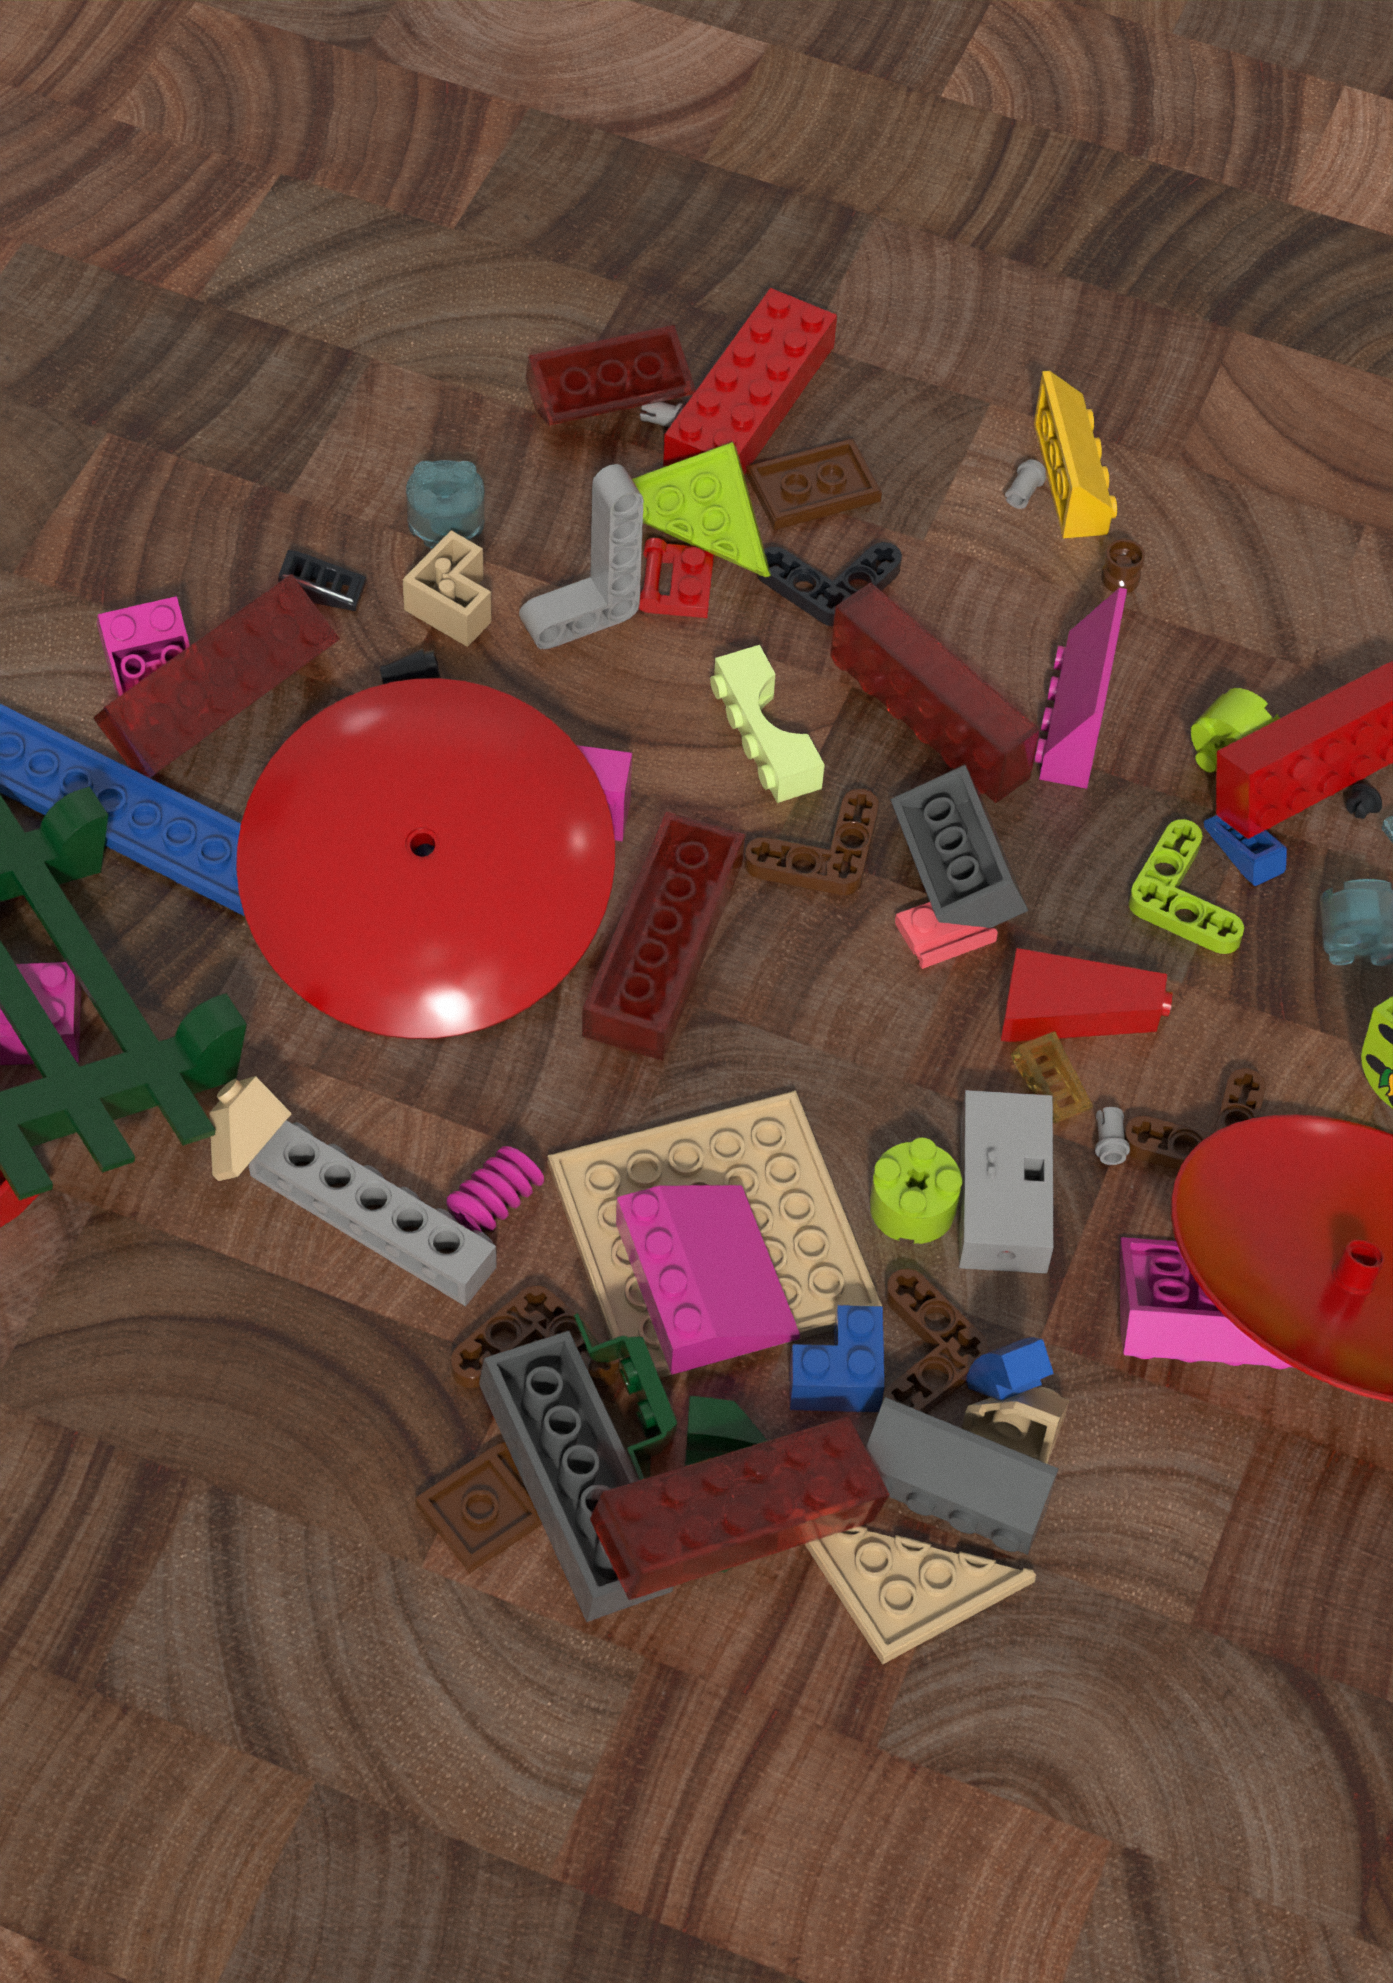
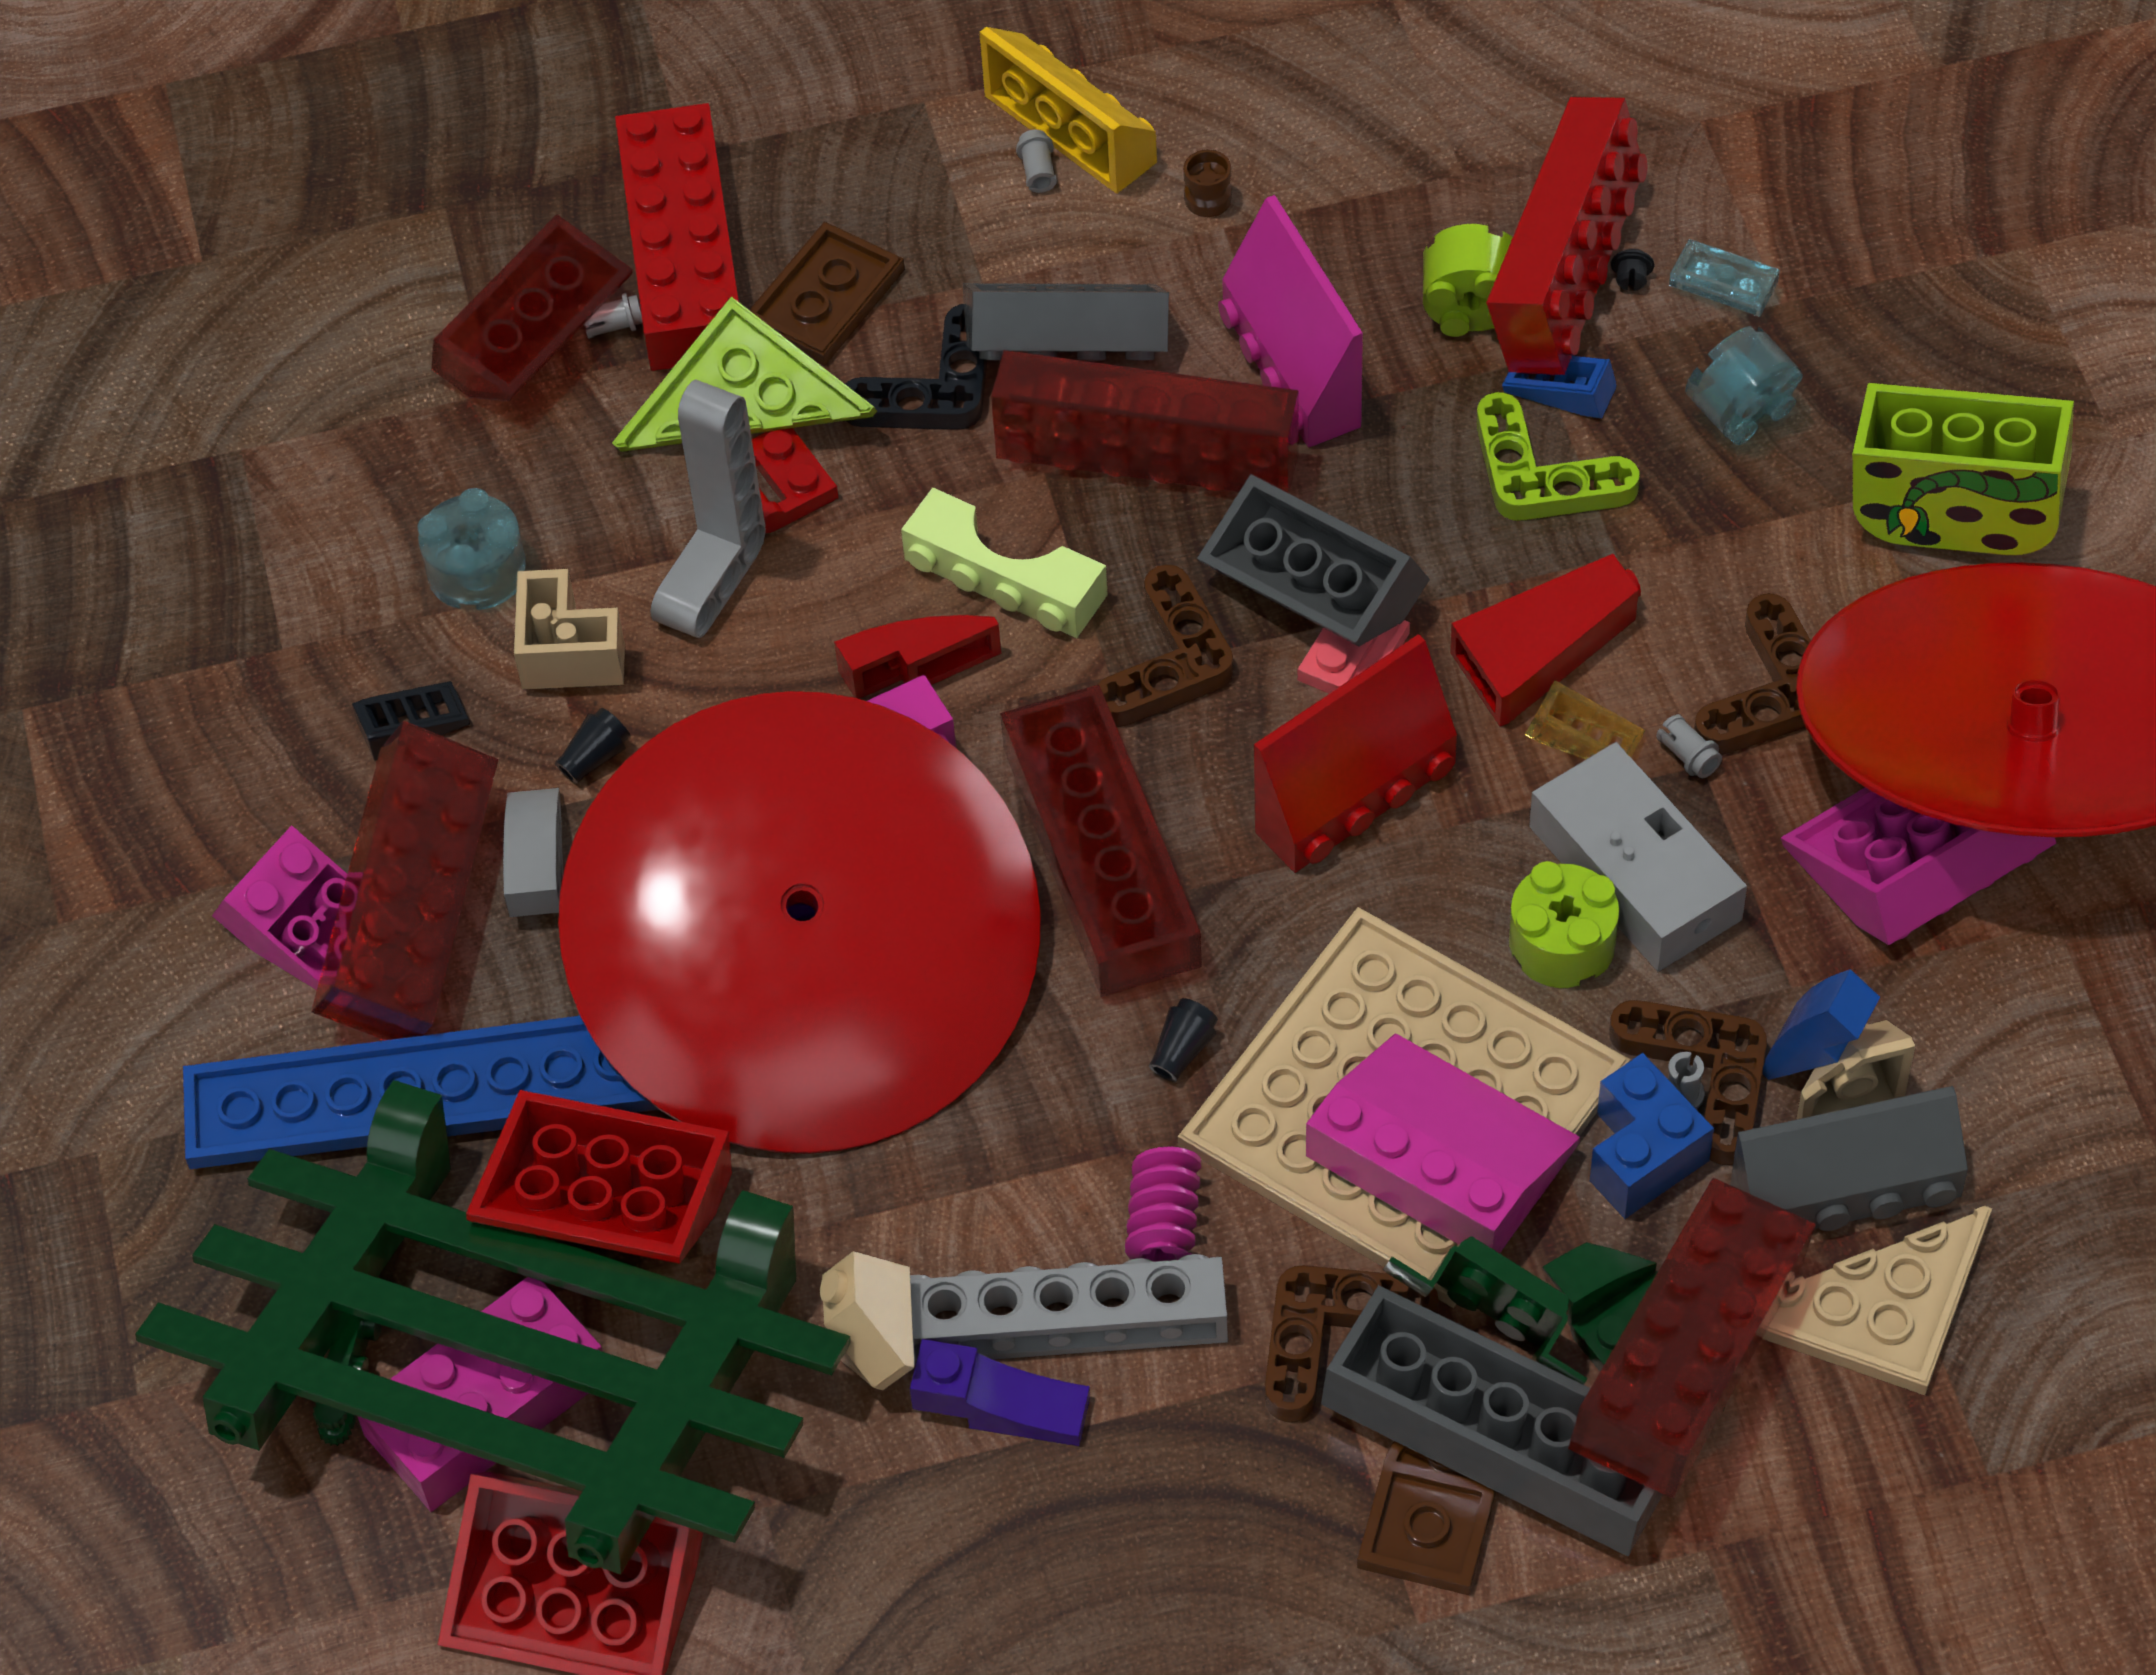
camera: 30 degrees left, 0 degrees up
(165, 934) = (603, 1177): none -> red slope
(288, 1234) = (997, 1396): none -> dark purple slope
(311, 700) = (532, 852): none -> light grey slope
(606, 1096) = (1183, 1037): none -> black cone
(661, 743) = (915, 648): none -> red slope
(867, 987) = (1352, 756): none -> red slope
(900, 1349) = (1687, 1078): none -> light grey pin
(945, 592) = (1066, 318): none -> dark grey slope

